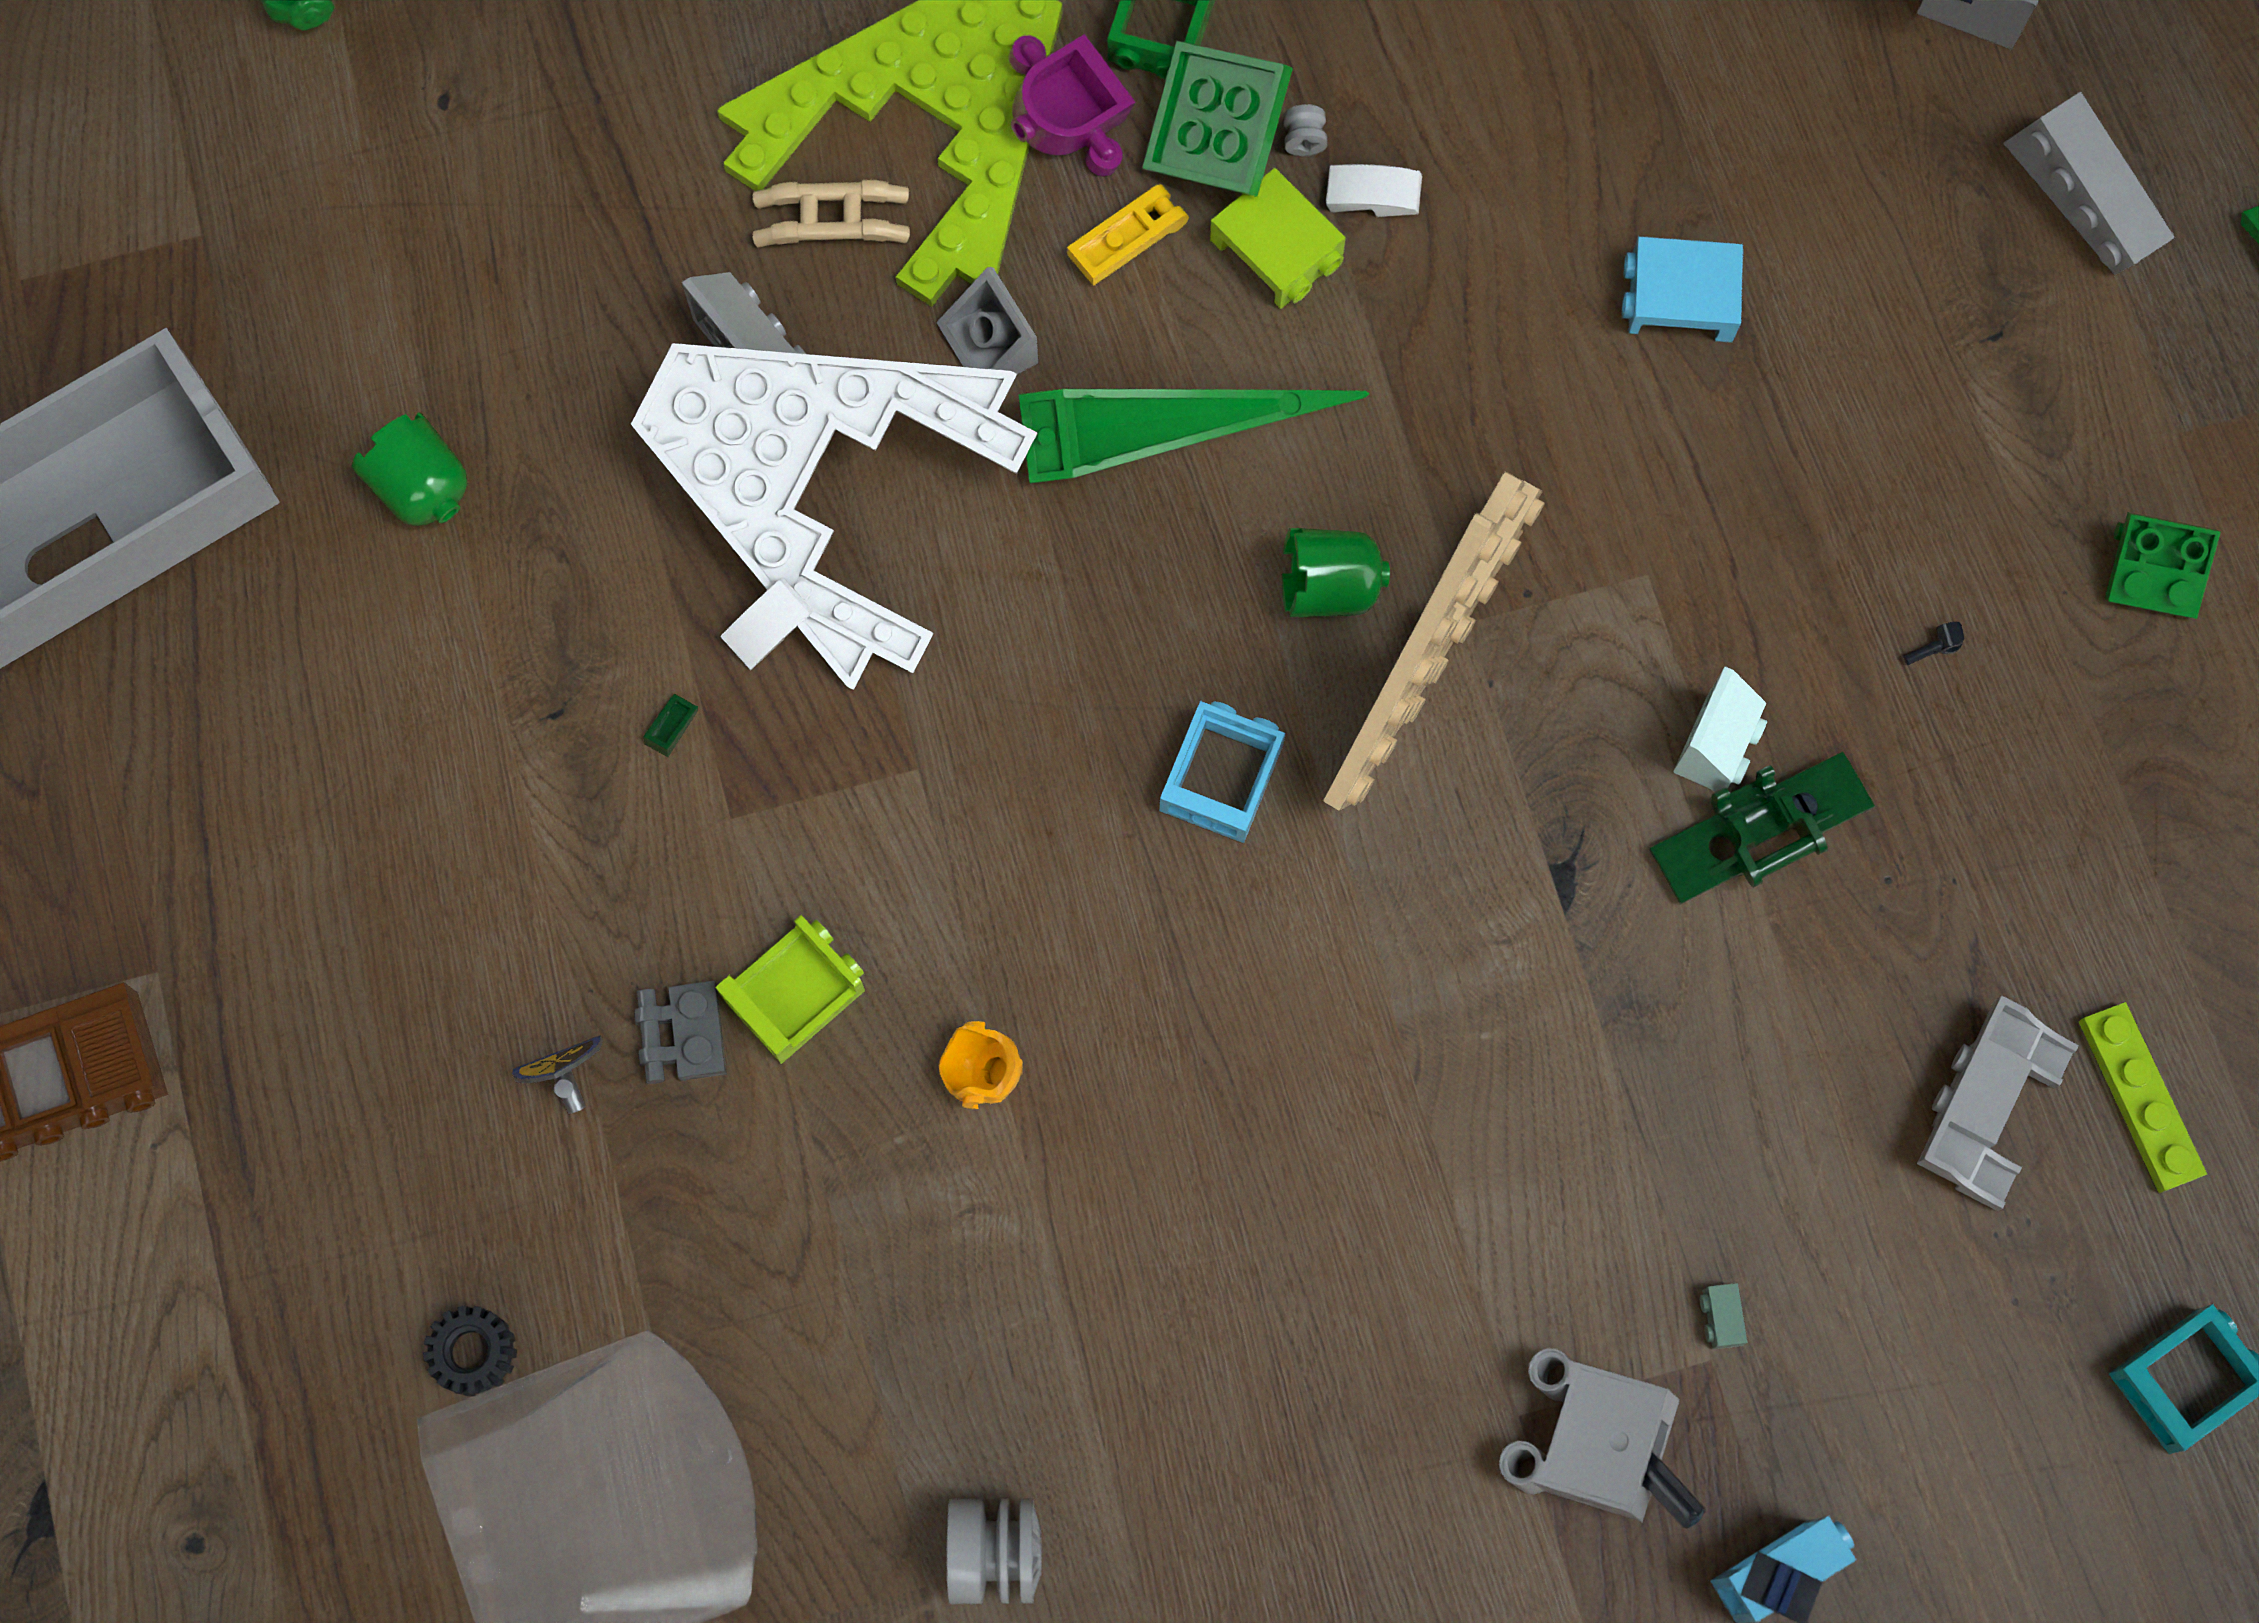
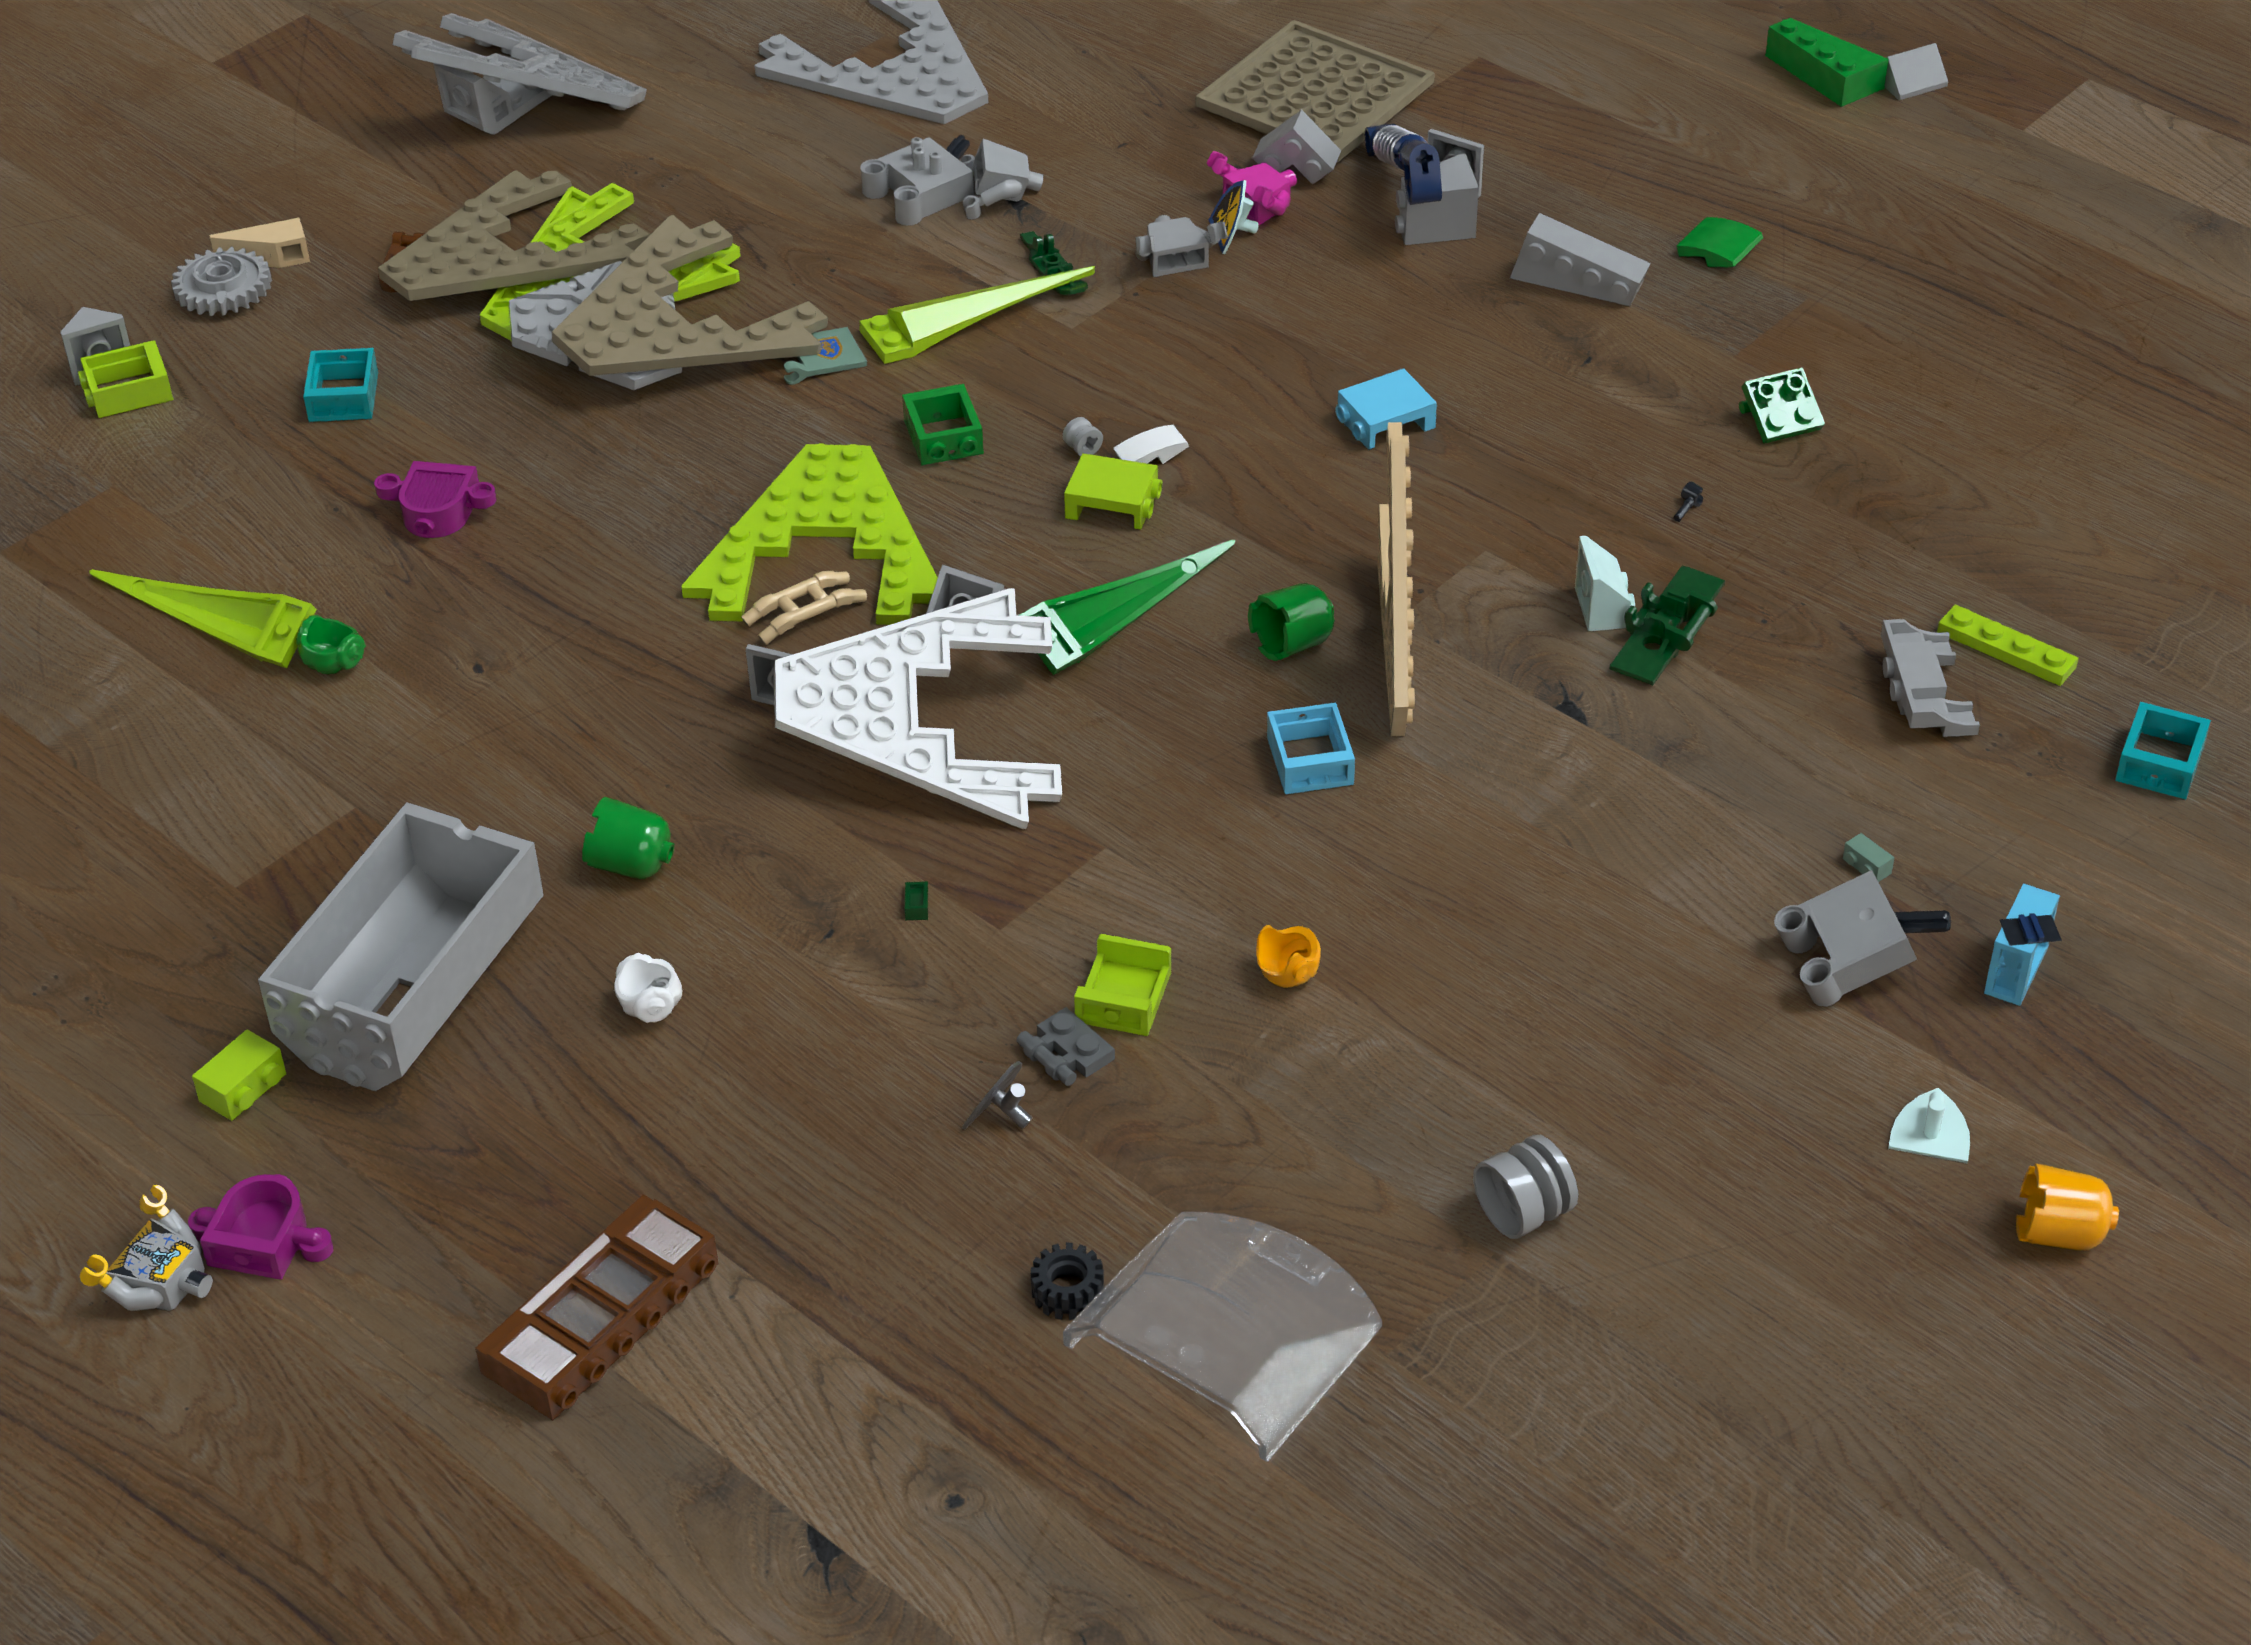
camera: 30 degrees left, 30 degrees down
(307, 695) = (647, 987): none -> white hair
(766, 623) = (943, 807): white slope -> none
(1069, 101) = (919, 481): magenta piece -> none
(1126, 234) = (1010, 532): yellow plate -> none
(1217, 118) = (1027, 440): green plate -> none

